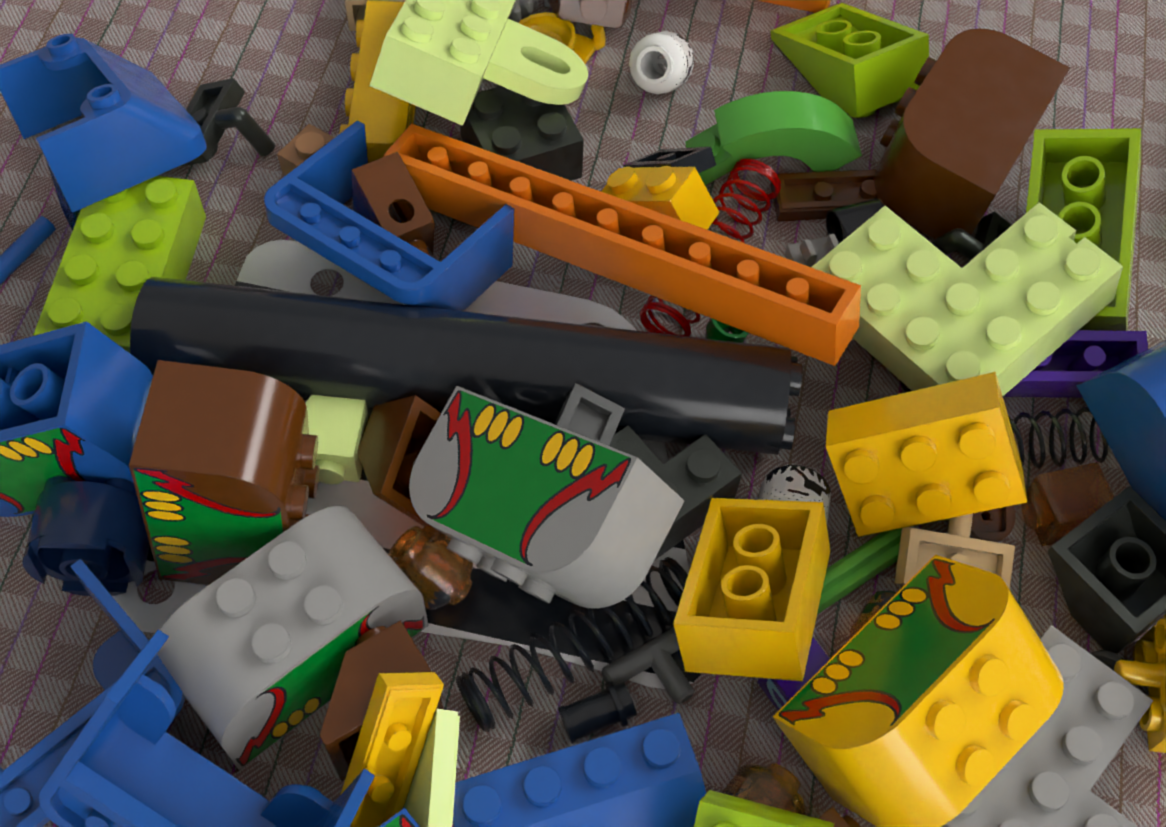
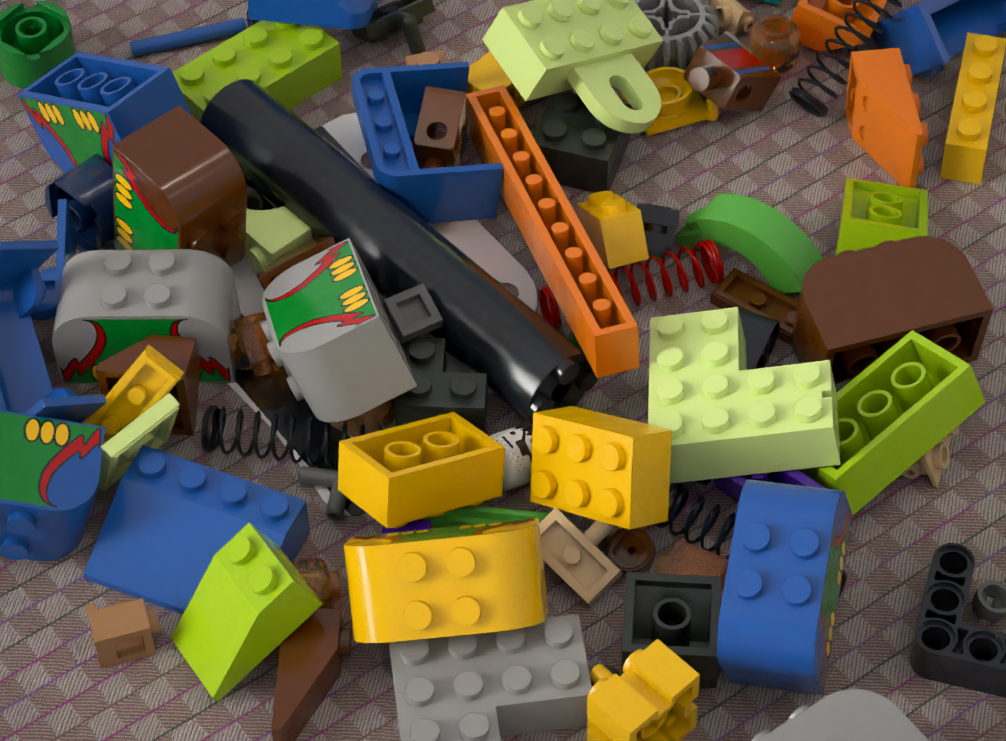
camera: 45 degrees right, 10 degrees down
(598, 711) = (284, 482): black pin -> none
(647, 62) = (730, 149): white head -> none

